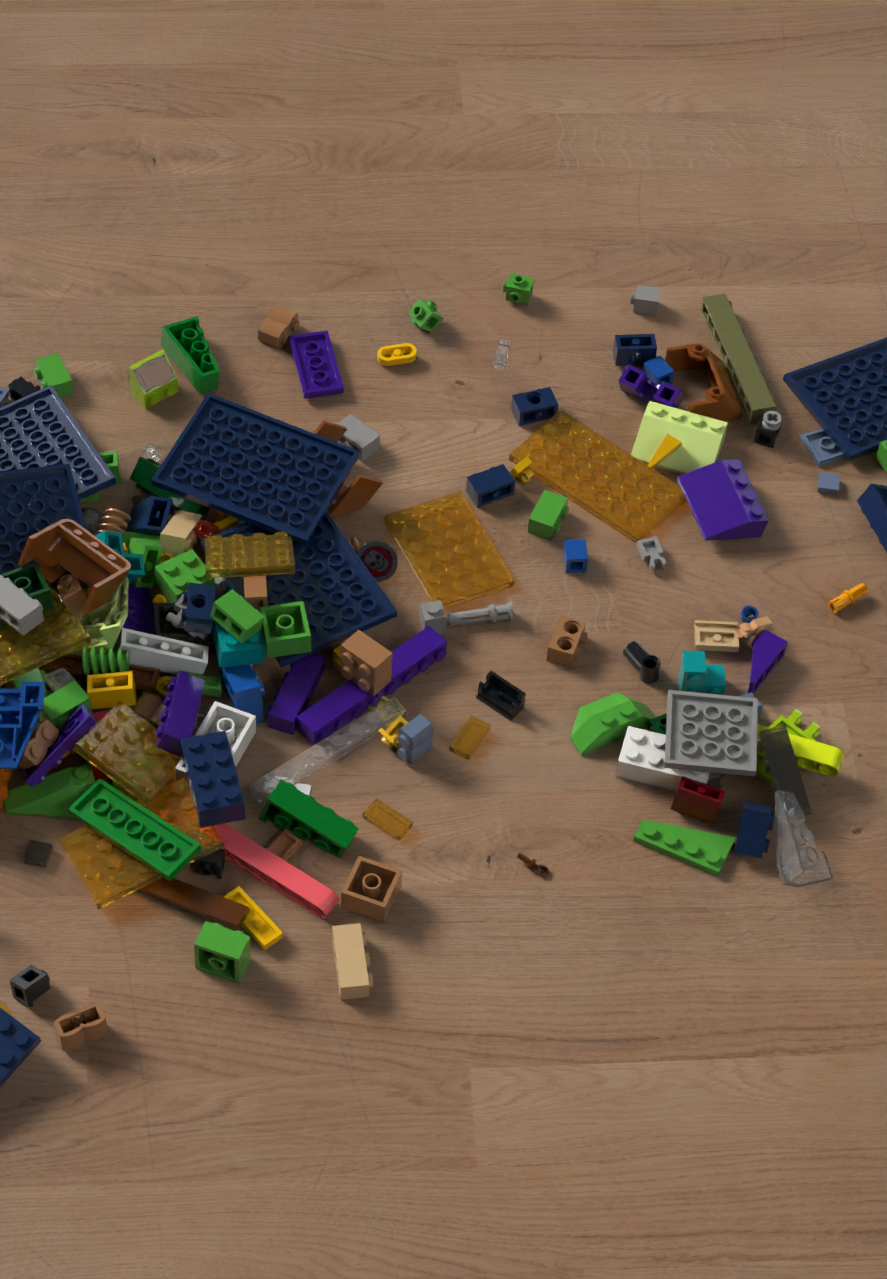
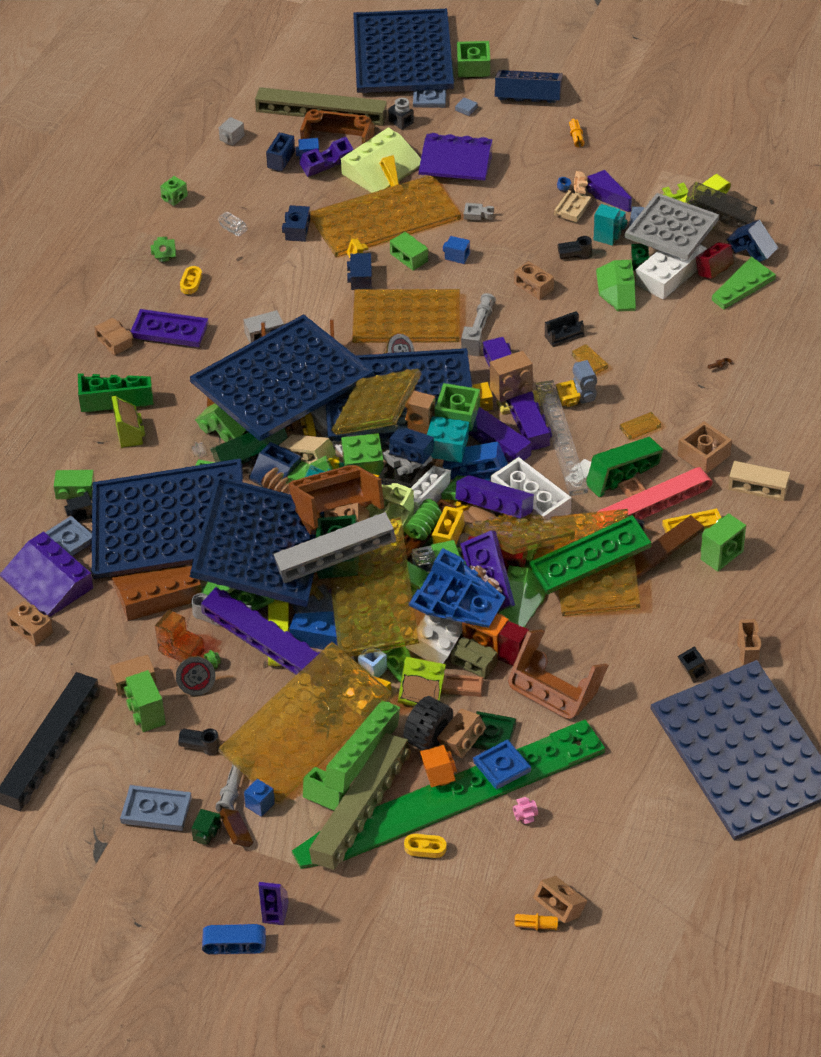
camera: 60 degrees left, 5 degrees down
(38, 853) = (567, 630): clear smoke tile -> none
(206, 529) = (322, 430): clear red bush -> none
(212, 779) = (574, 491): dark blue brick -> none
(237, 616) = (442, 419): bright green brick -> none
(796, 851) = (788, 229): clear wedge -> none

